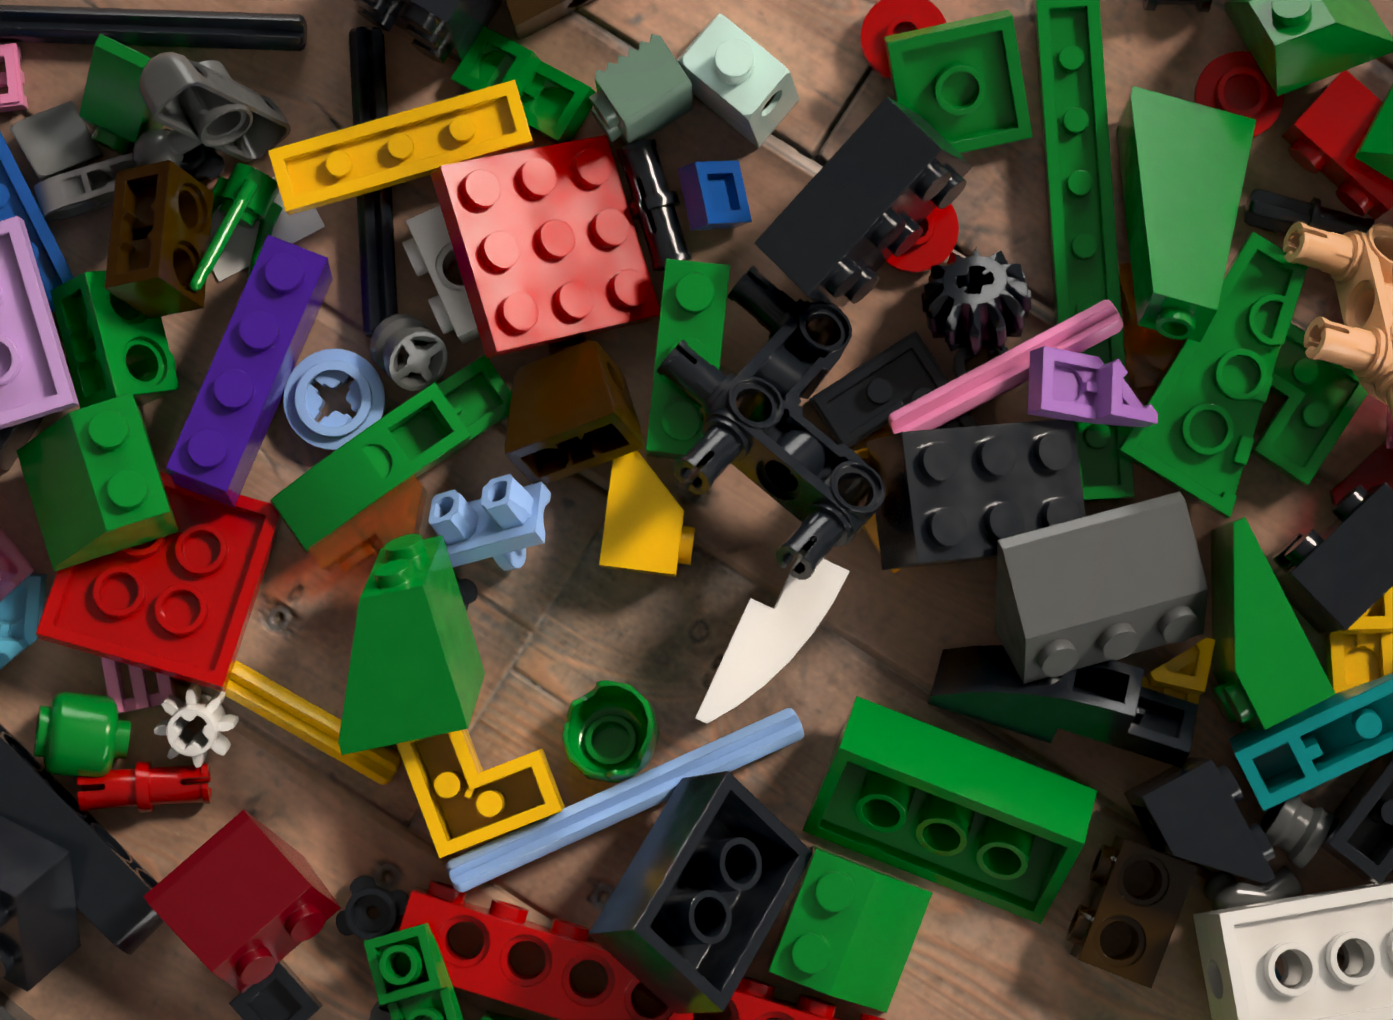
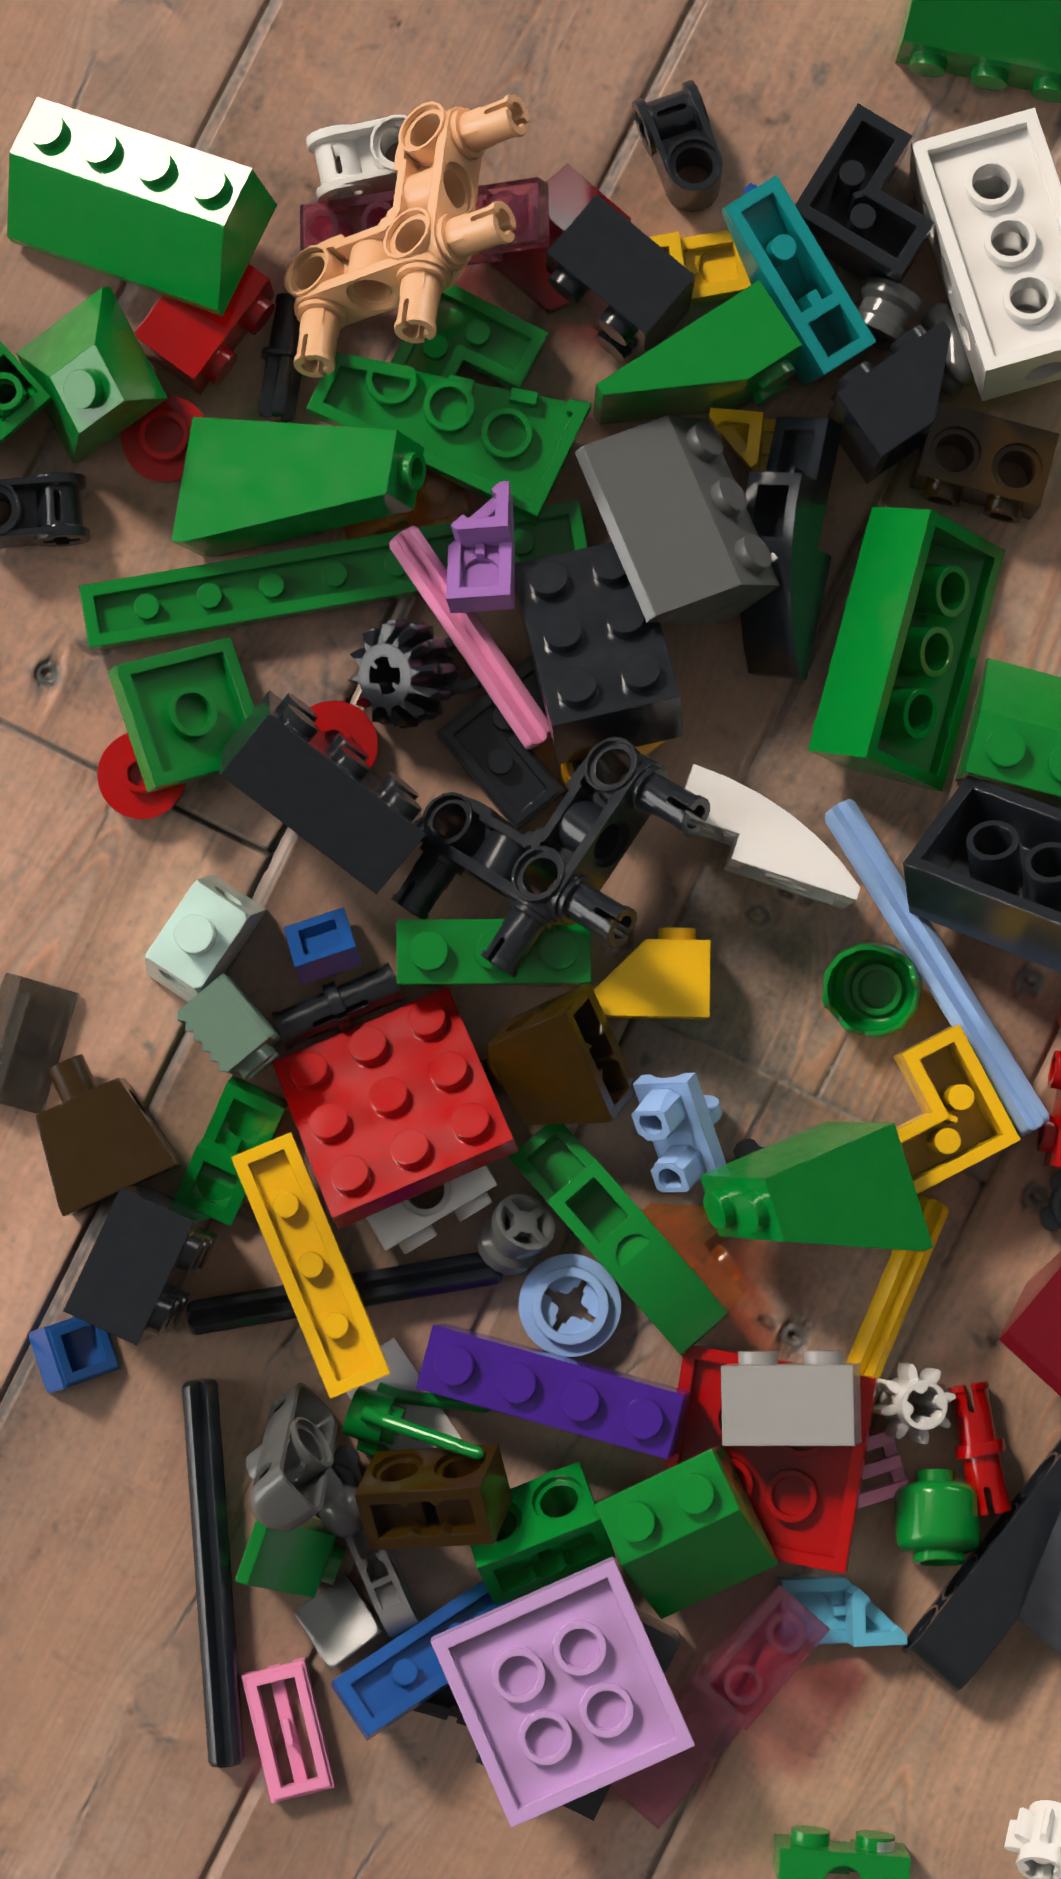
camera: 100 degrees left, 0 degrees up
(208, 598) = (791, 1401): none -> light grey brick

